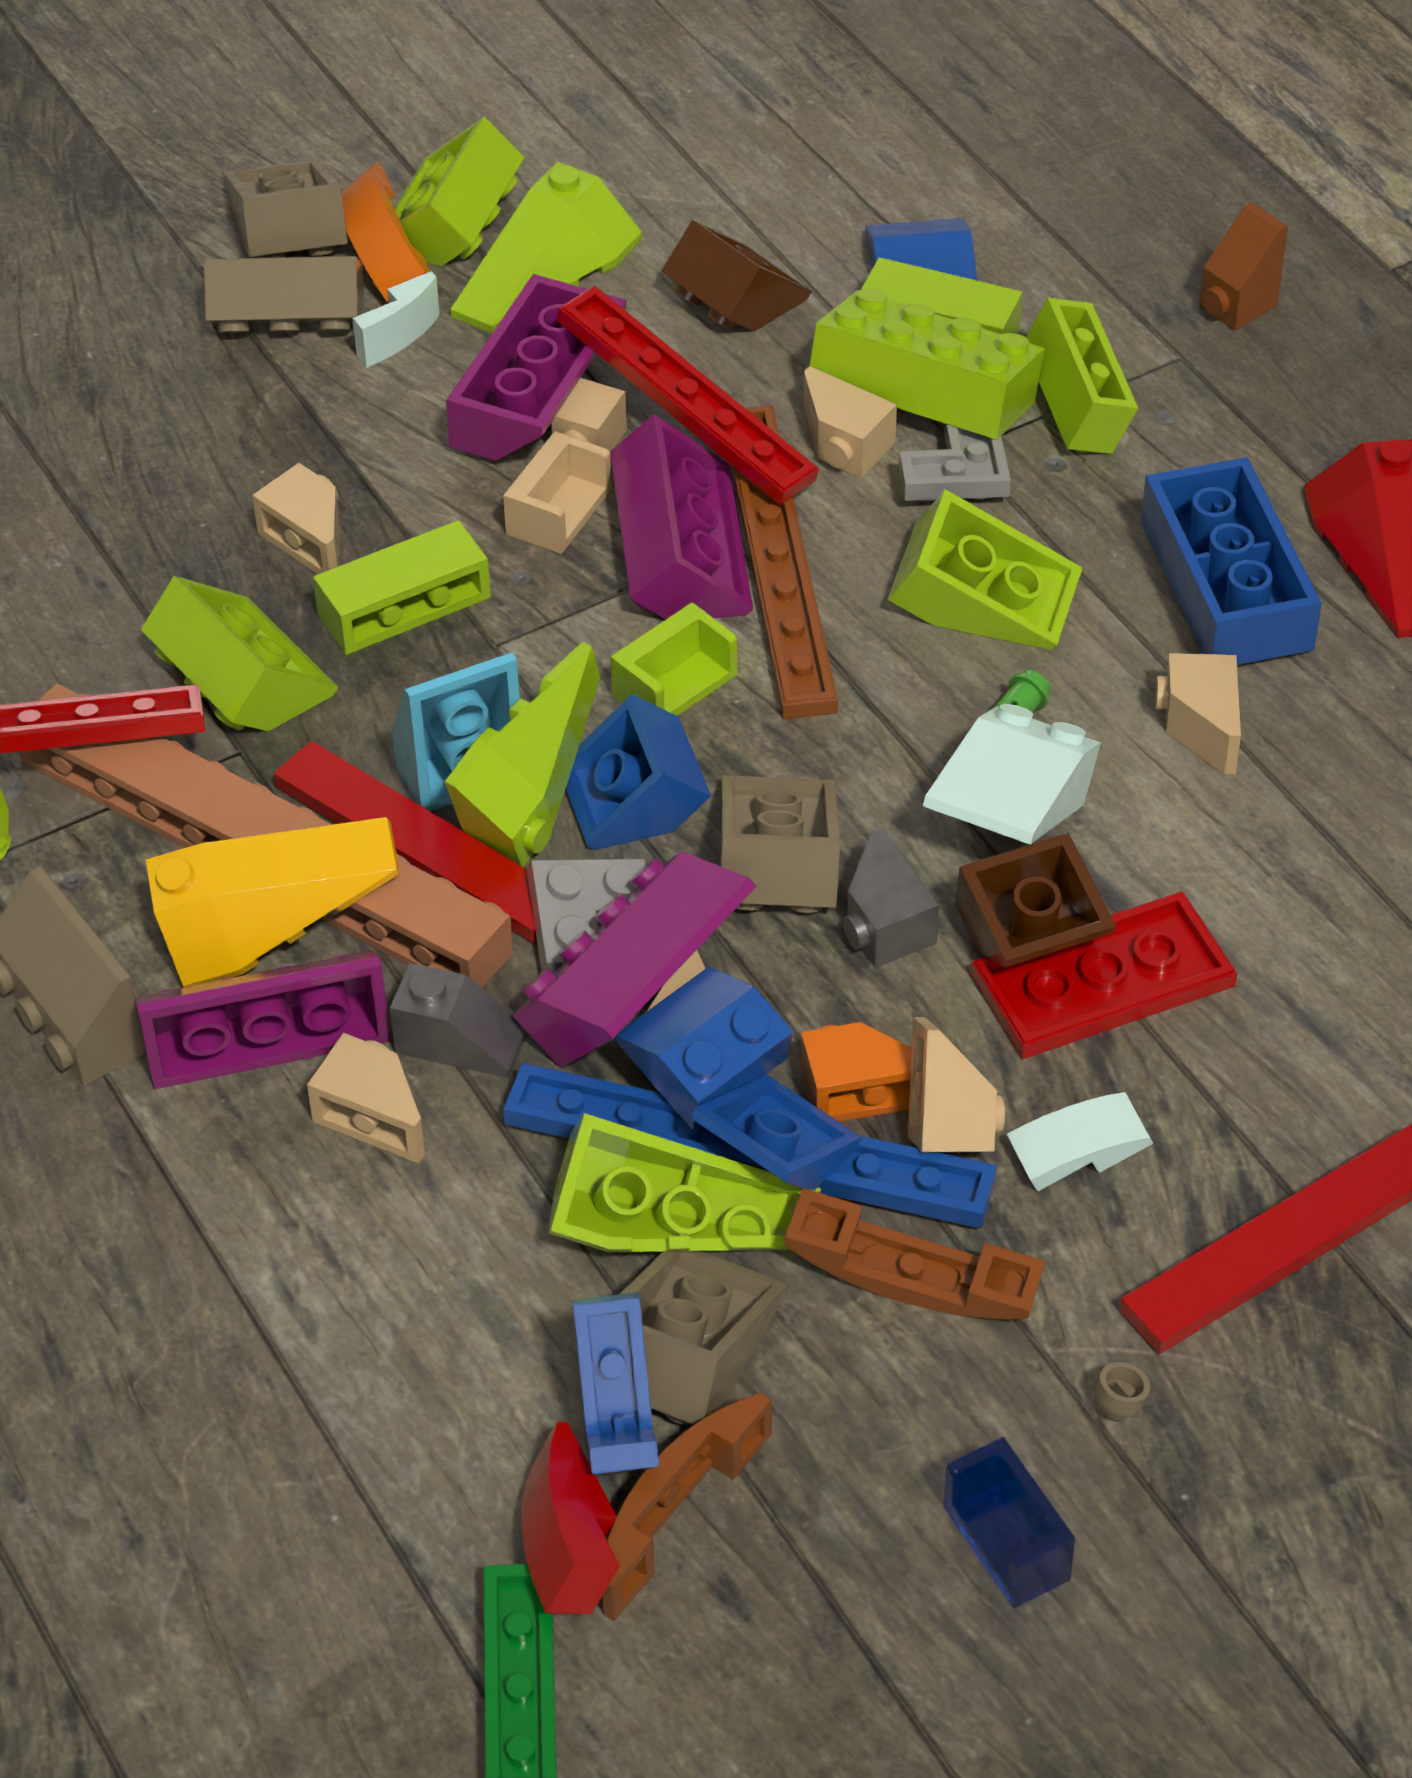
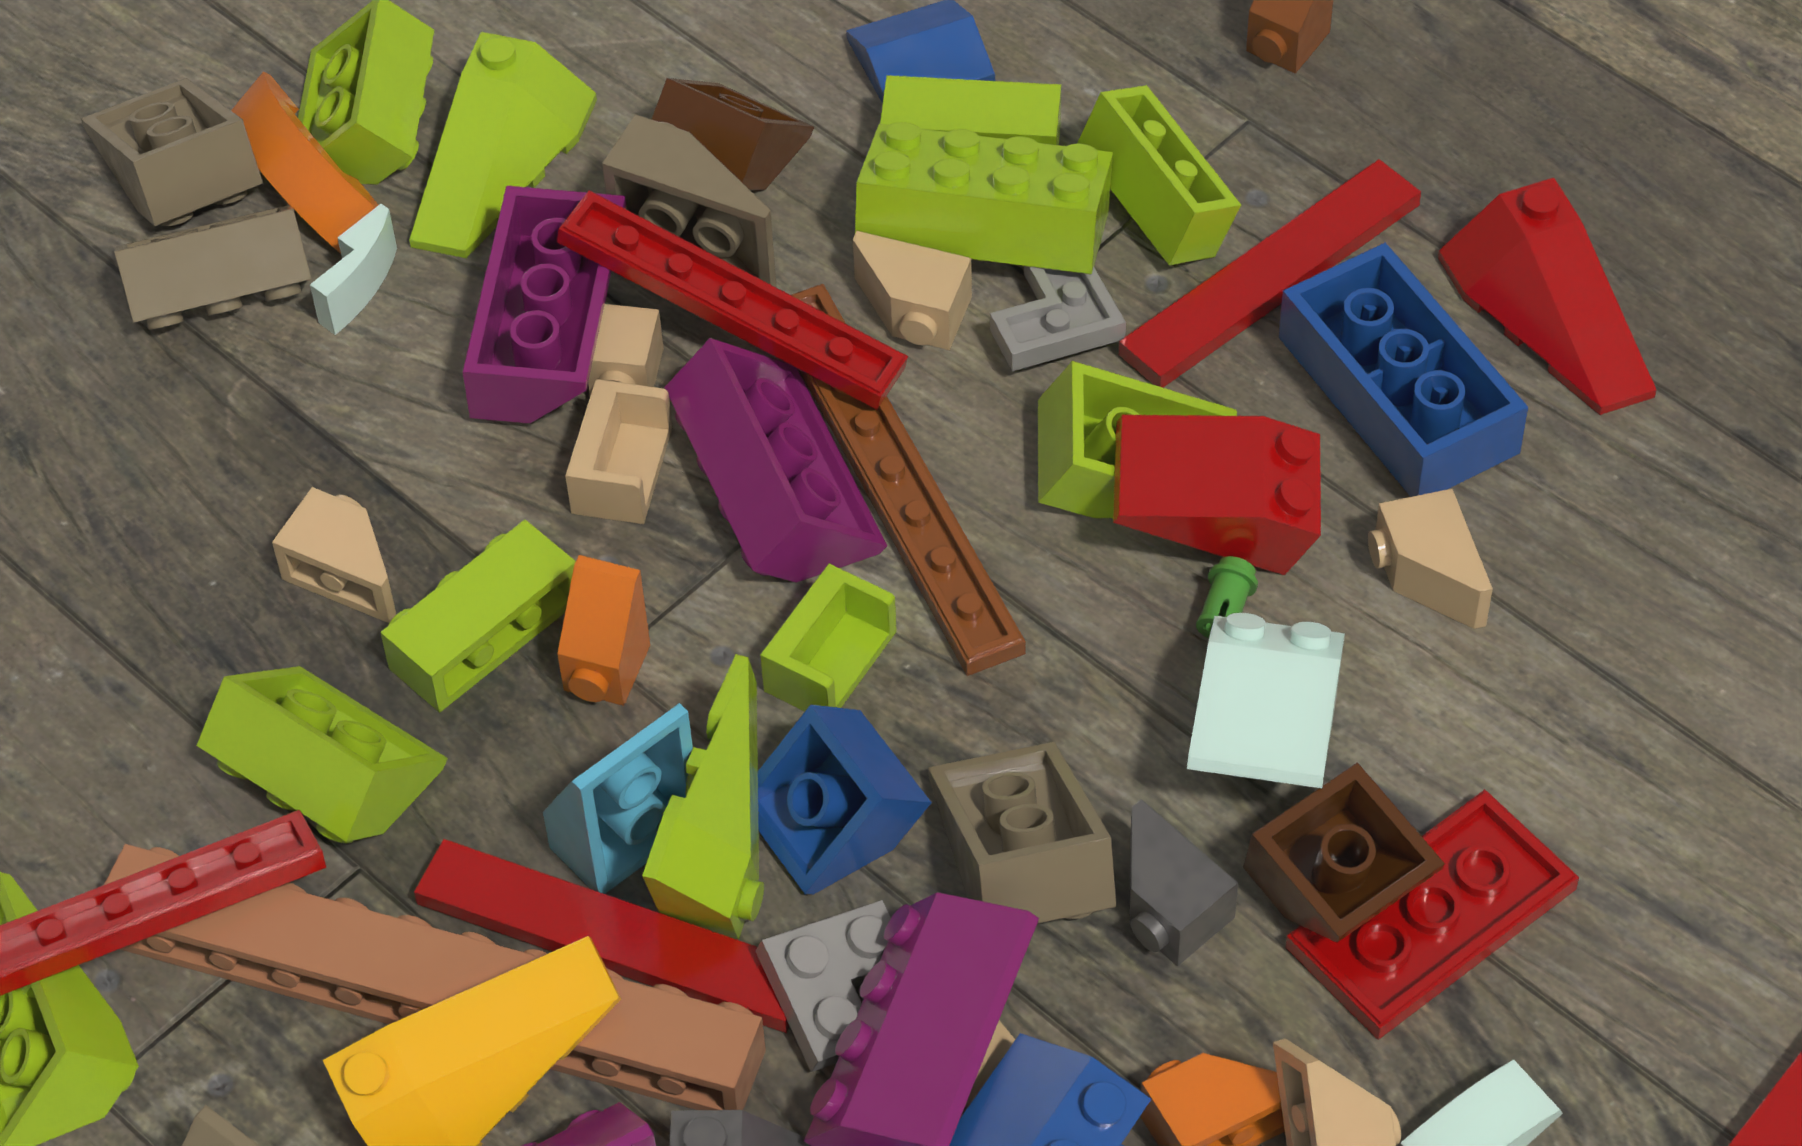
camera: 15 degrees left, 5 degrees up
(491, 609) = (603, 631): none -> orange slope
(679, 307) = (690, 194): none -> dark tan slope
(1039, 612) = (1221, 484): none -> red slope
(1121, 481) = (1256, 280): none -> red tile

